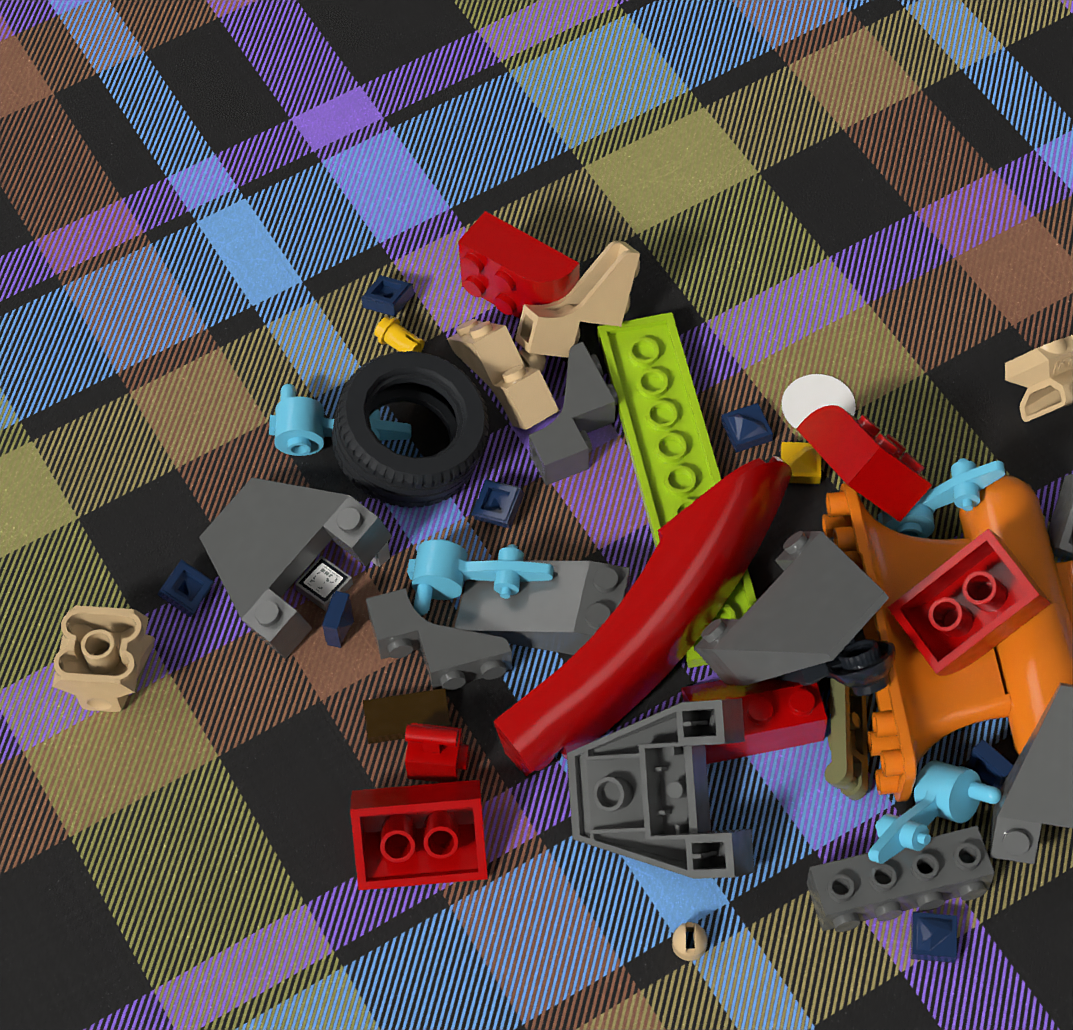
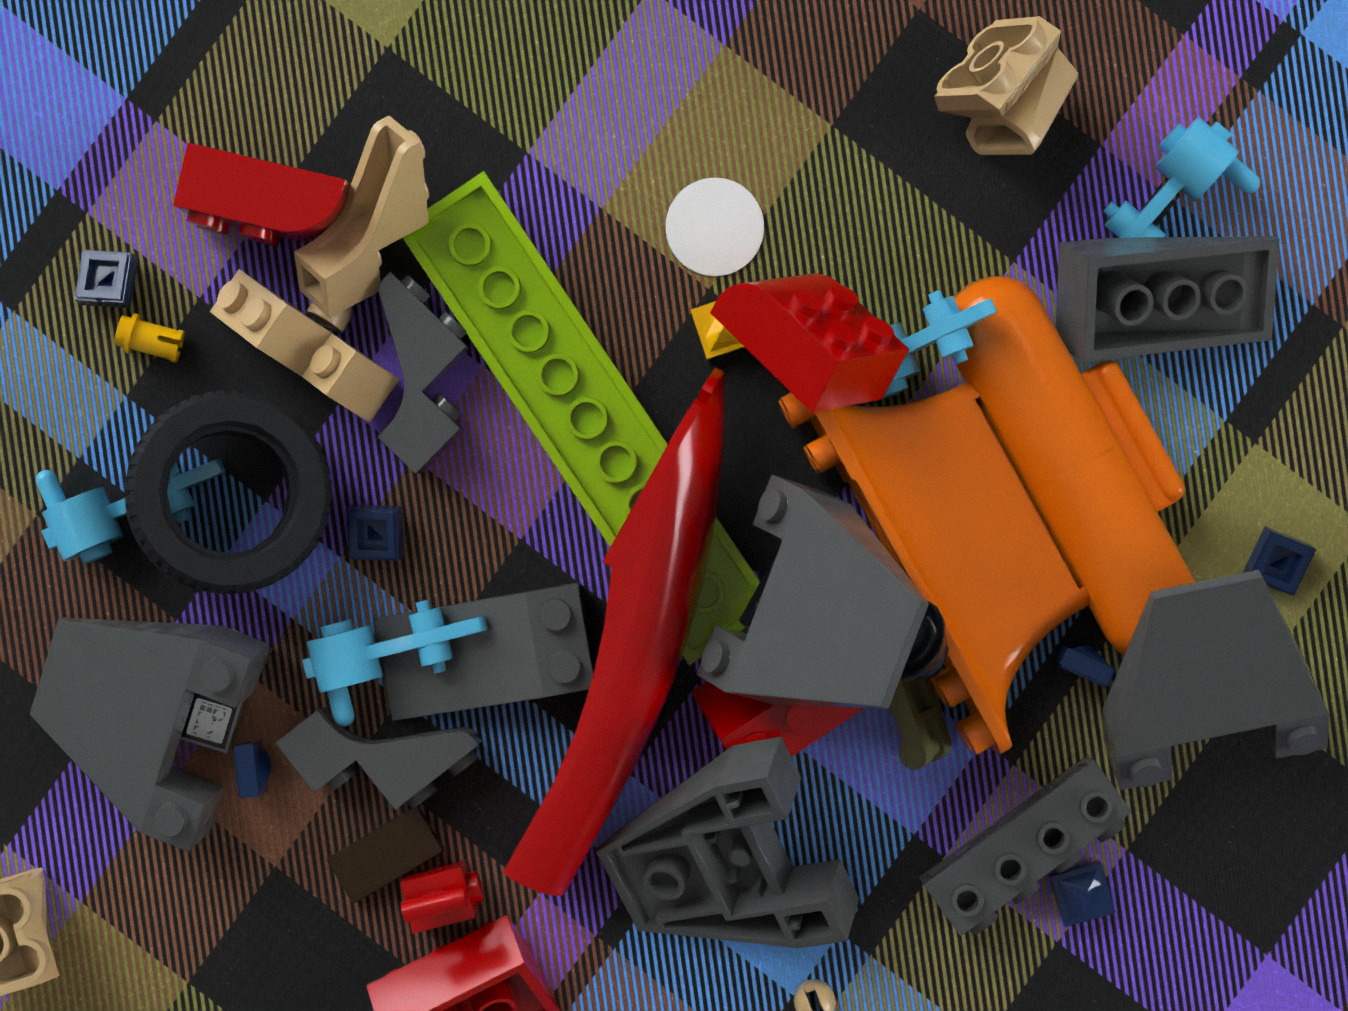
camera: 25 degrees left, 30 degrees up
(185, 588) = (48, 794): dark blue tile -> none
(747, 427) = (638, 300): dark blue tile -> none
(938, 792) = (1044, 727): medium azure piece -> none
(969, 604) = (1009, 511): red brick -> none

